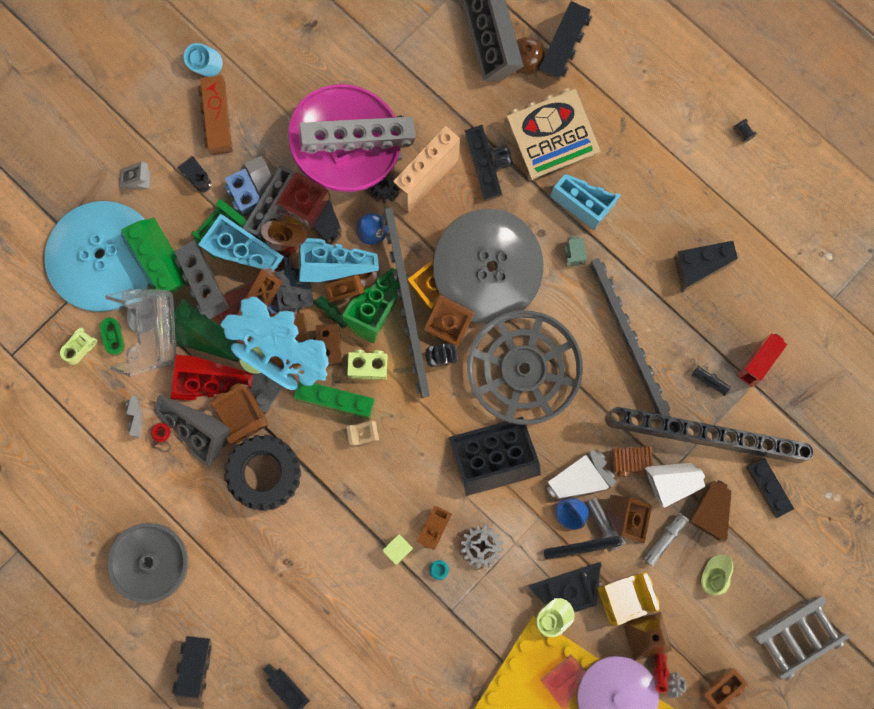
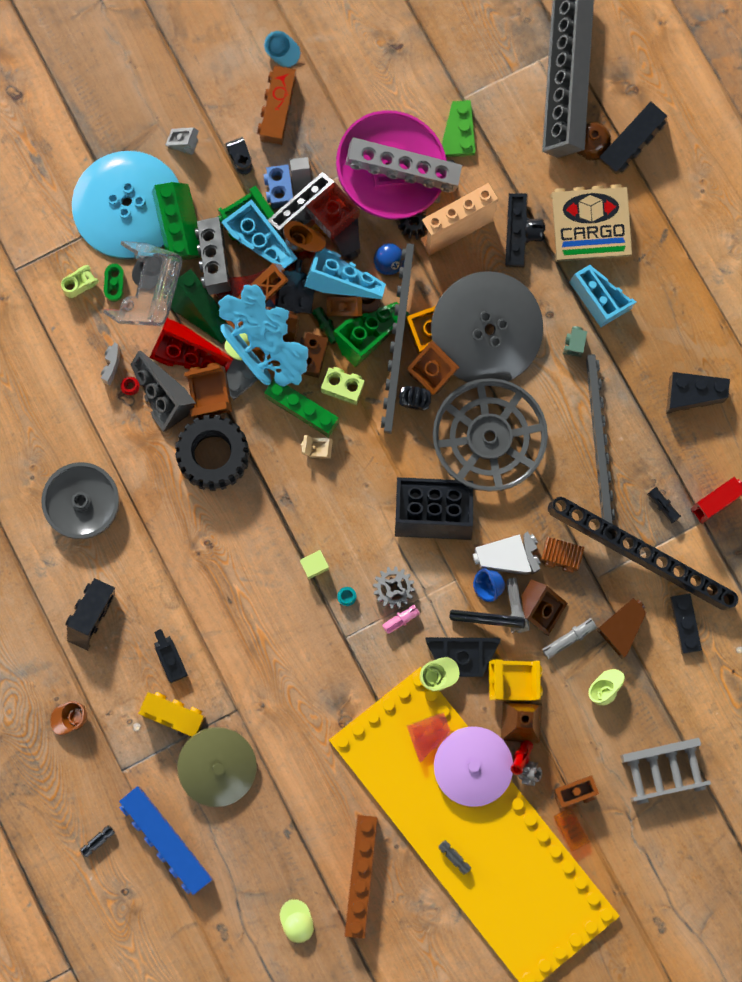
camera: 20 degrees right, 0 degrees up
(397, 85) = (459, 131): none -> bright green wing
(434, 528) = (355, 555): dark orange brick -> none
(499, 575) = (401, 619): none -> bright pink axle
(674, 481) = (595, 586): white slope -> none

